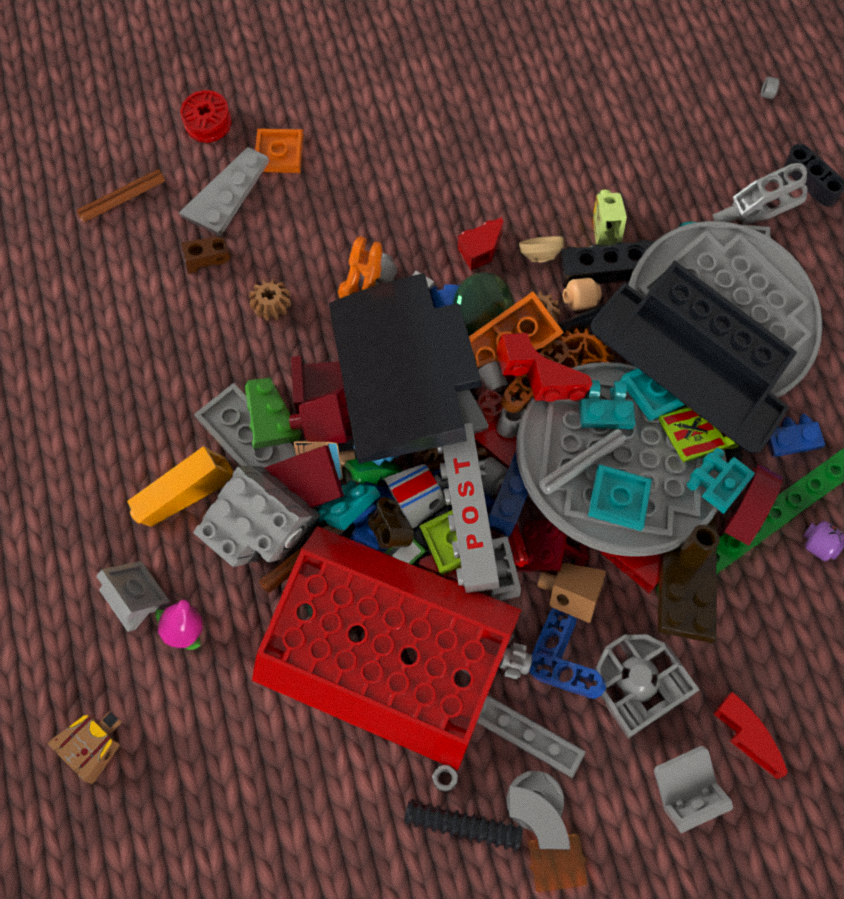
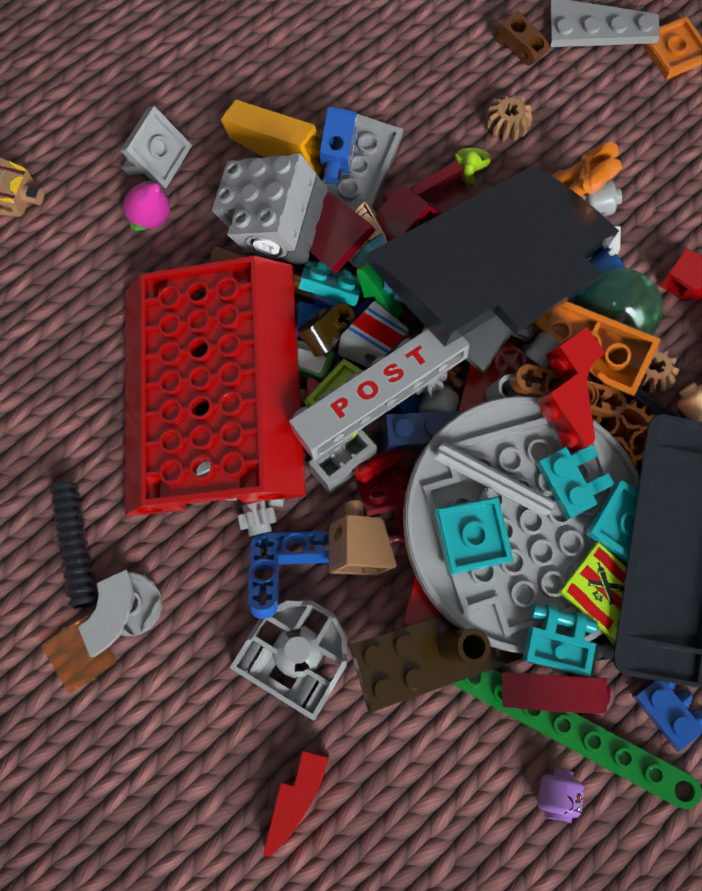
camera: 60 degrees right, 5 degrees up
(220, 431) = (338, 143): none -> blue torso
(268, 415) = (385, 170): bright green wing -> none
(295, 348) = (471, 161): none -> lime piece
(445, 788) = (103, 505): light grey axle -> none
(530, 737) = (191, 570): light grey tile -> none
(691, 790) = (204, 758): light grey bracket -> none

